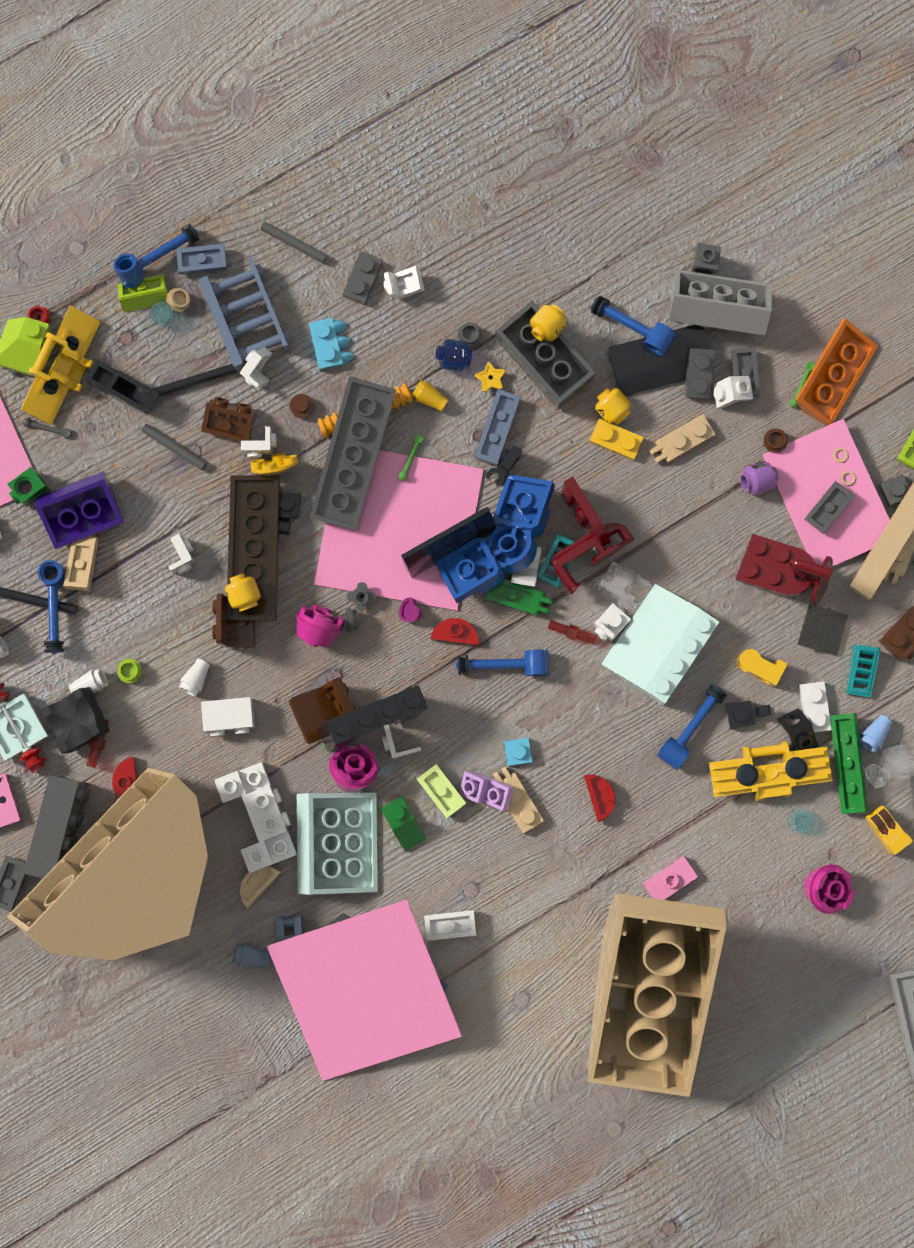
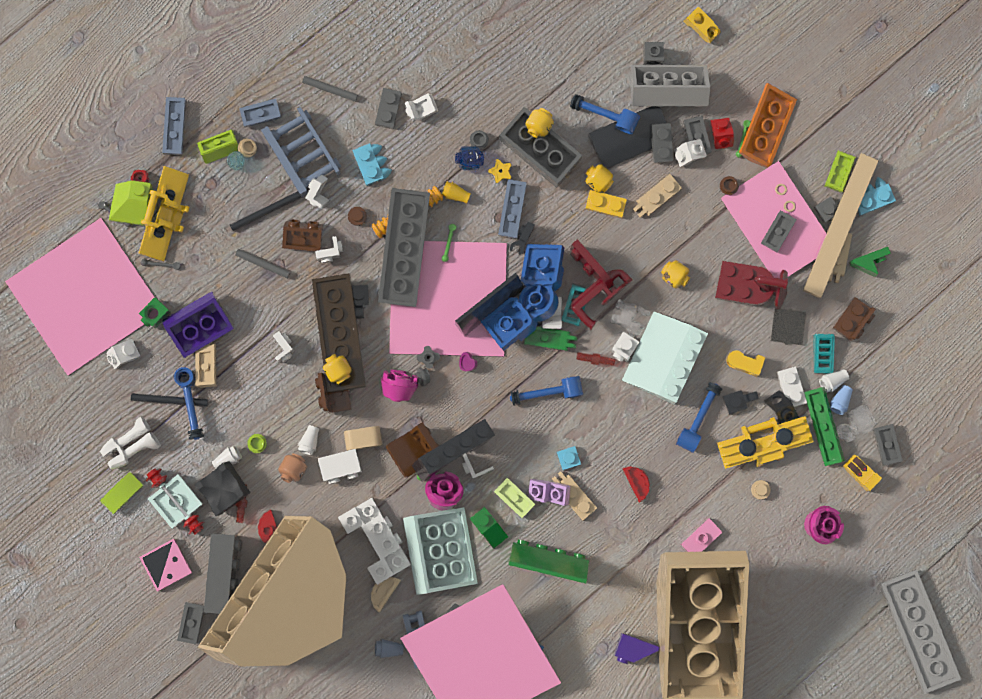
camera: 15 degrees left, 0 degrees up
(92, 258) = (174, 126): none -> sand blue plate
(121, 387) = (215, 223): black slope -> none
(130, 269) = (206, 130): blue piece -> none
(168, 708) = (292, 468): none -> nougat head
(263, 685) = (363, 438): none -> tan beam
(276, 465) = (344, 266): yellow dish -> none
(450, 925) = (537, 600): white plate -> none
(455, 631) = (505, 373): red plate -> none
(470, 880) = (549, 562): none -> green slope
(561, 1007) = (633, 649): none -> dark purple slope
(690, 541) = (675, 274): none -> yellow head
(755, 830) = (760, 489): none -> tan plate
(759, 478) = (721, 217): medium lavender head -> none
(774, 234) = (703, 25): none -> yellow leg
(777, 373) = (722, 133): none -> red bracket
(800, 820) = (794, 476): clear light blue plate -> none
(870, 707) = (833, 380): none -> white cone

